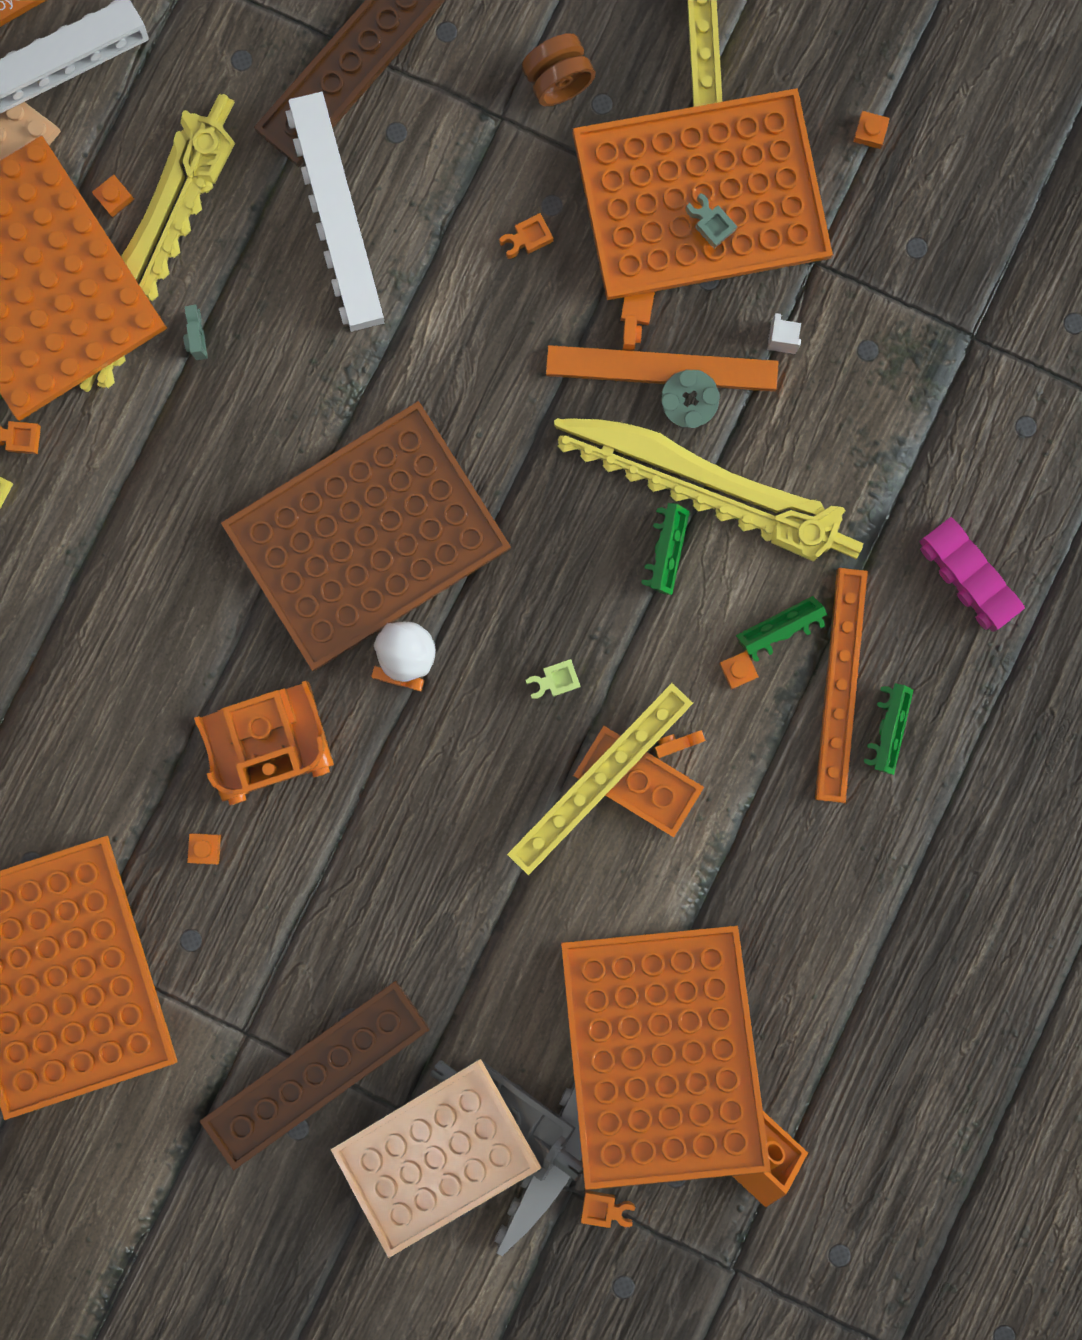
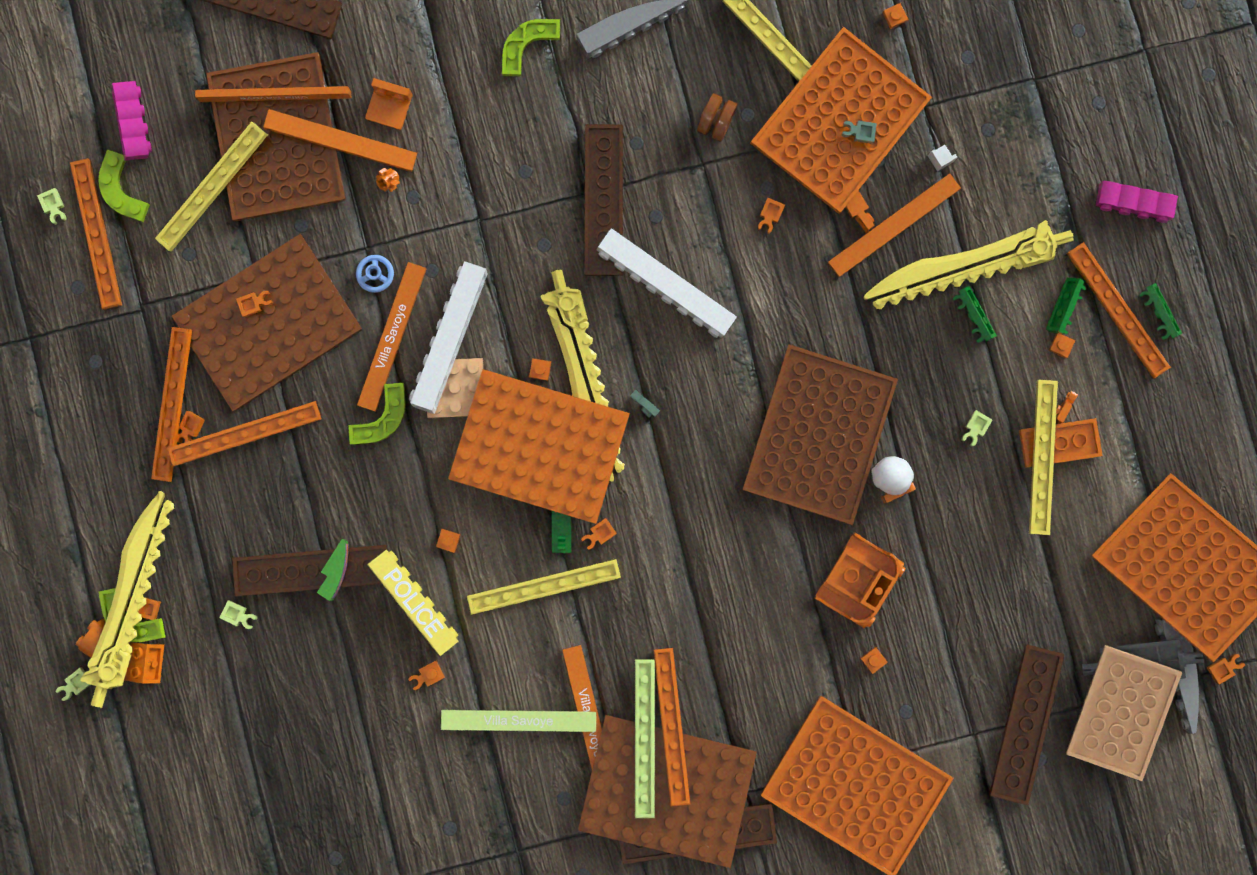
camera: 45 degrees left, 0 degrees up
(673, 399) = (915, 221): sand green plate -> none

